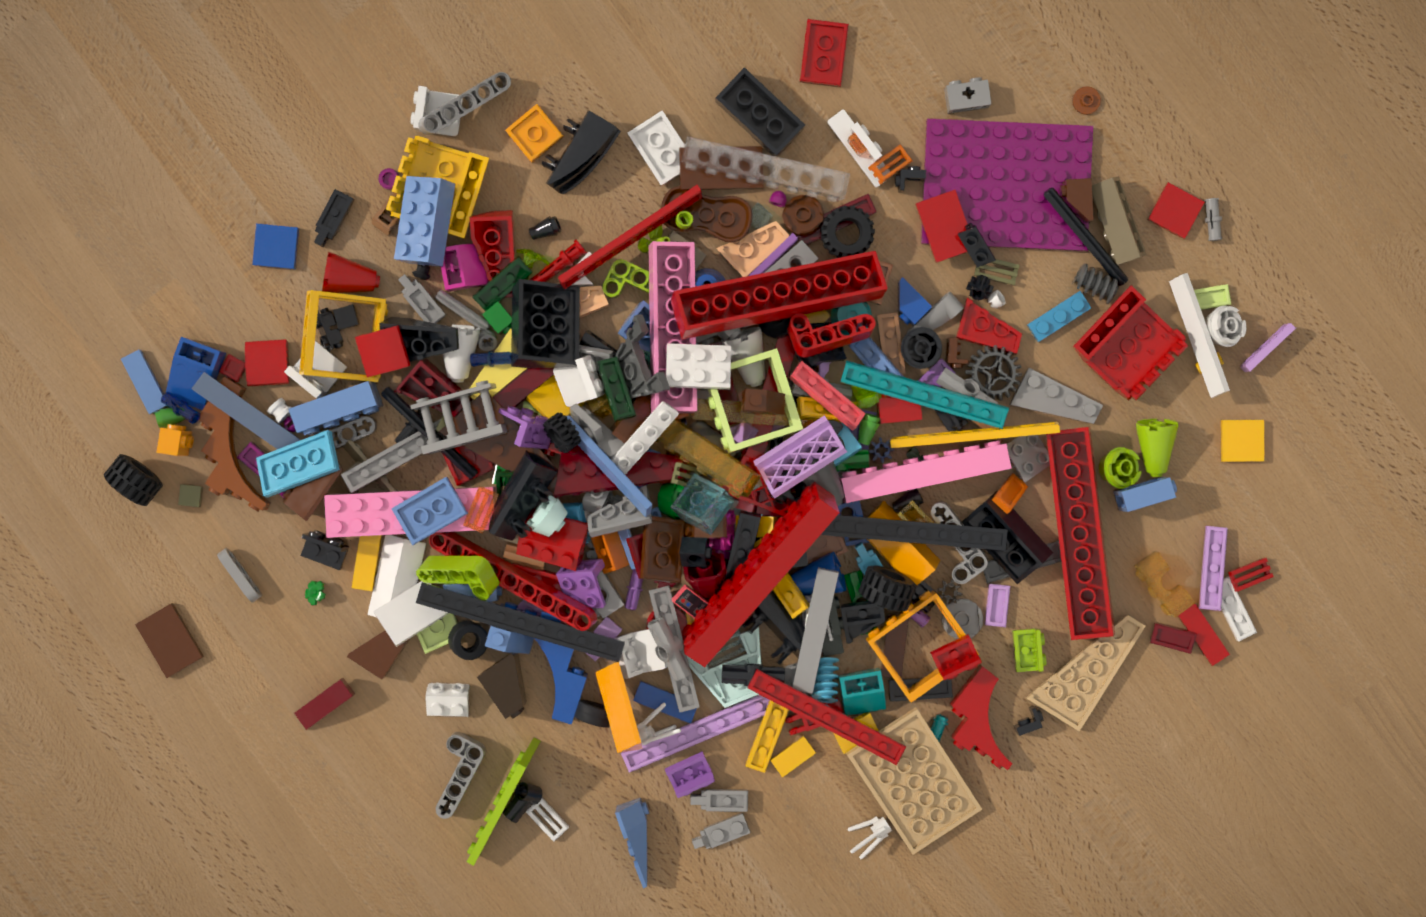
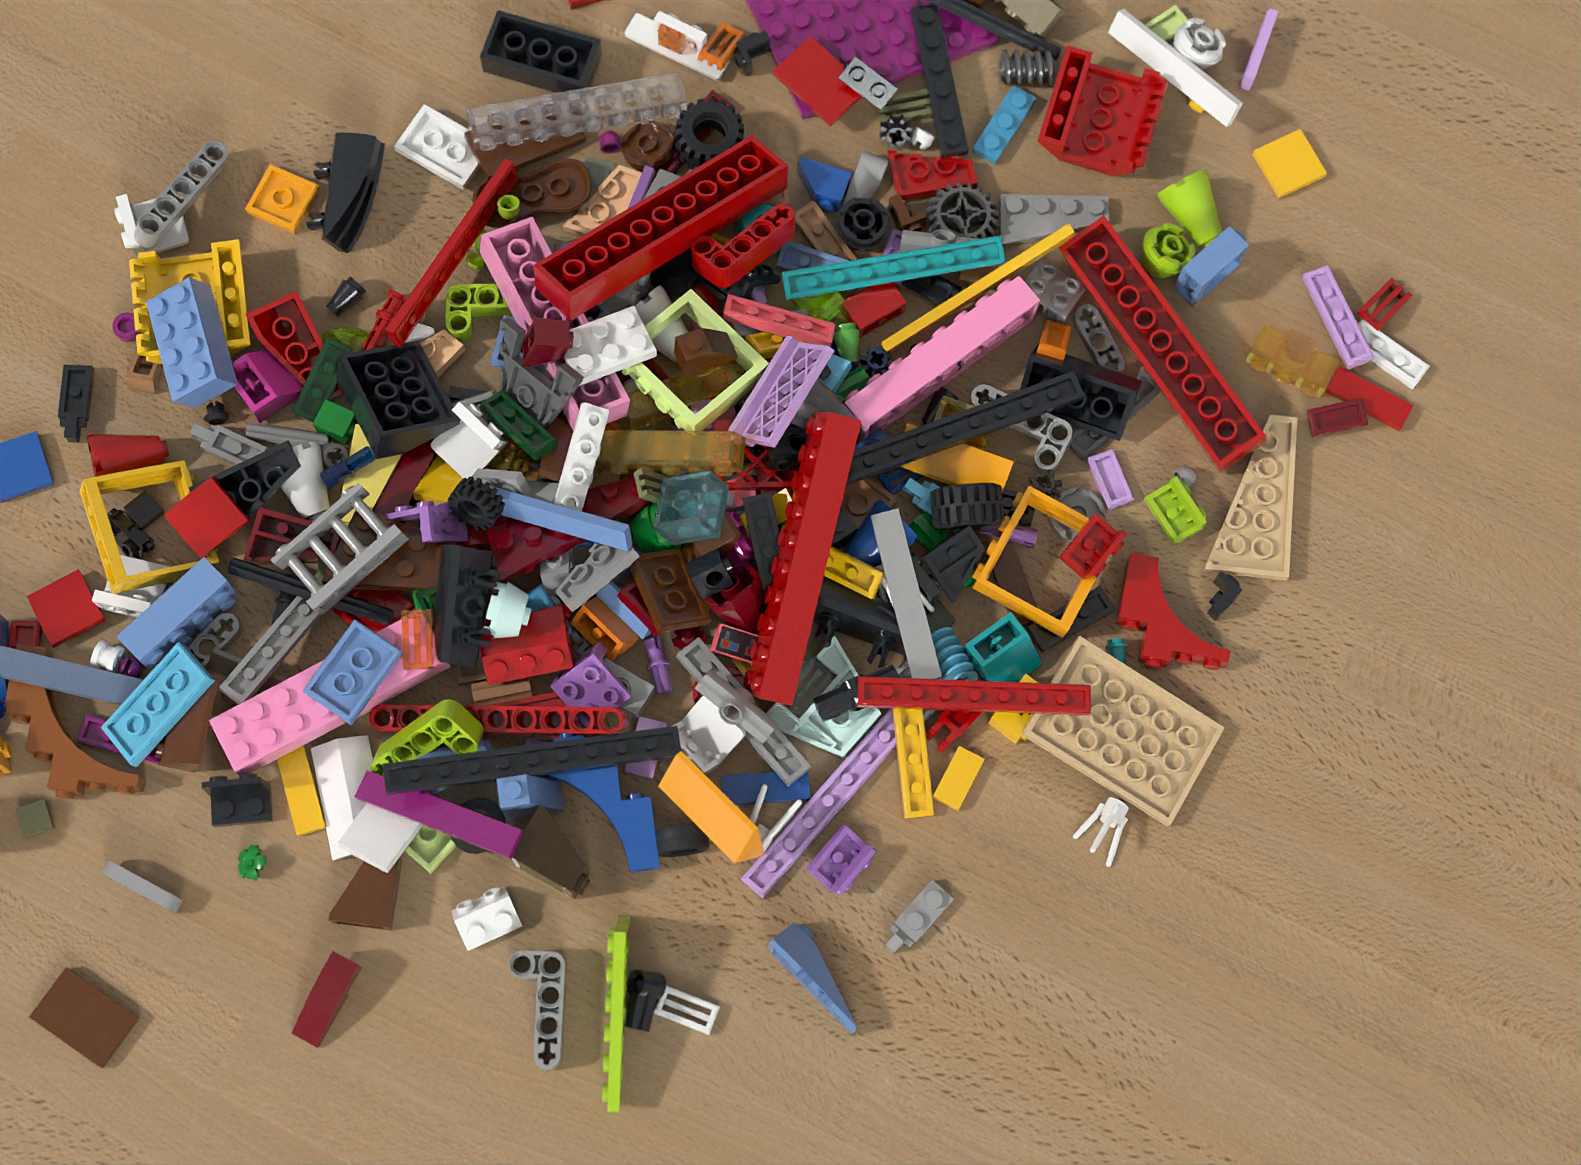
camera: 30 degrees left, 15 degrees down
(448, 631) = (442, 816): none -> magenta tile
(658, 349) = (546, 341): none -> dark red slope
(721, 800) = (897, 874): light grey hinge -> none
(1028, 265) = (939, 81): none -> black plate
(1046, 490) = (1097, 321): none -> dark grey beam
(1048, 628) = (1186, 474): none -> light grey hinge

